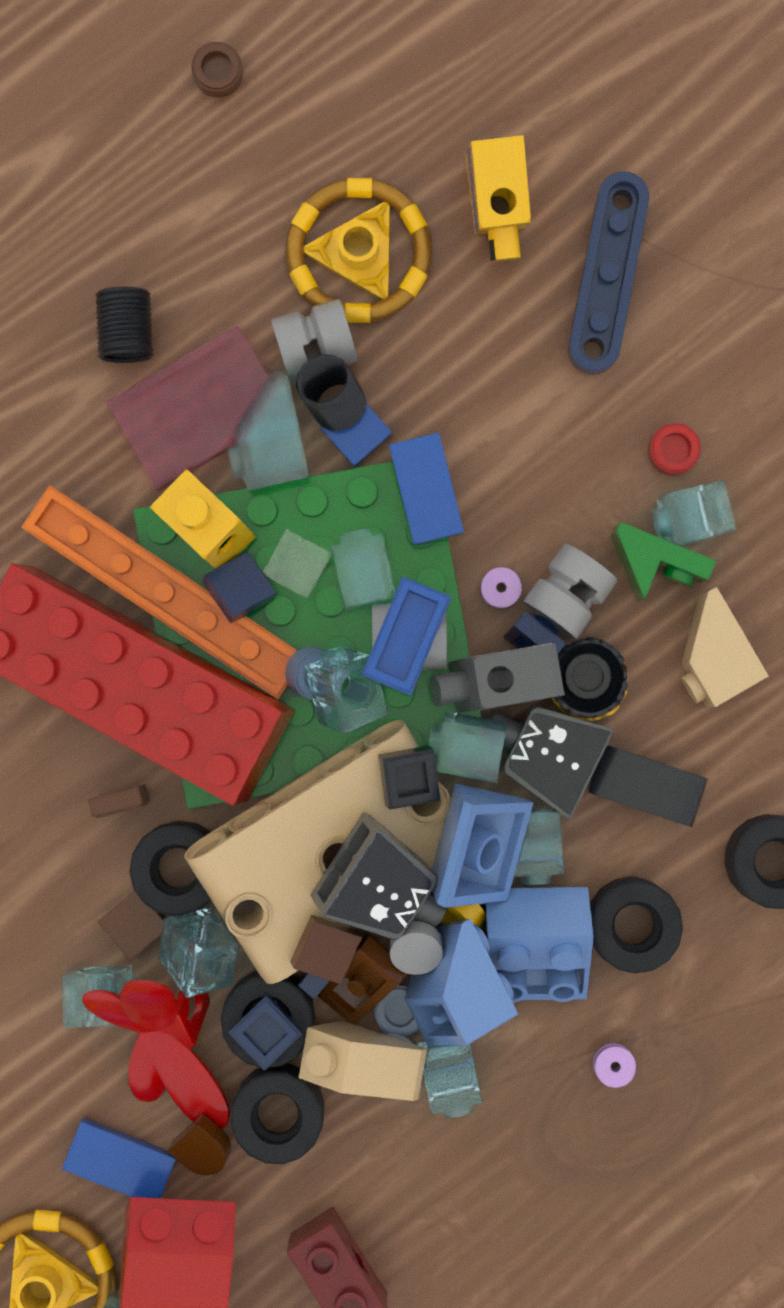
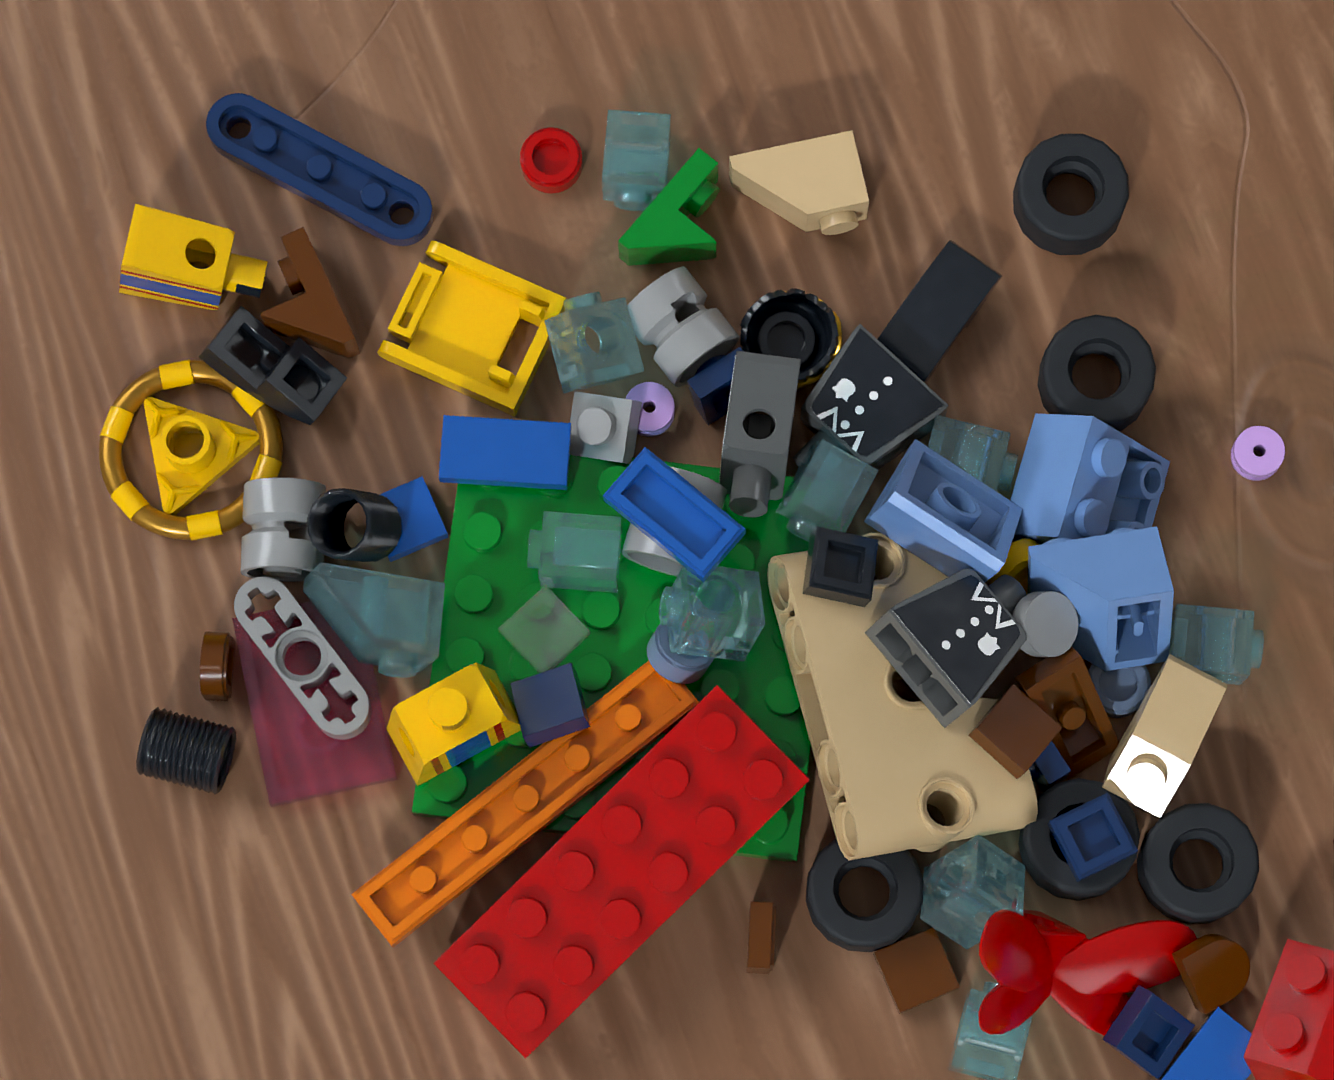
camera: 70 degrees left, 10 degrees down
(139, 1112) = (1148, 1032): none -> dark blue plate
(198, 325) = (217, 665): none -> reddish brown tile
(253, 364) = (288, 611): none -> light grey beam
(438, 290) = (263, 365): none -> black slope
(473, 558) = (604, 427): none -> light grey plate
(493, 310) = (316, 313): none -> reddish brown slope
(524, 426) = (464, 324): none -> yellow container
(533, 550) = (575, 361): none -> clear light blue brick

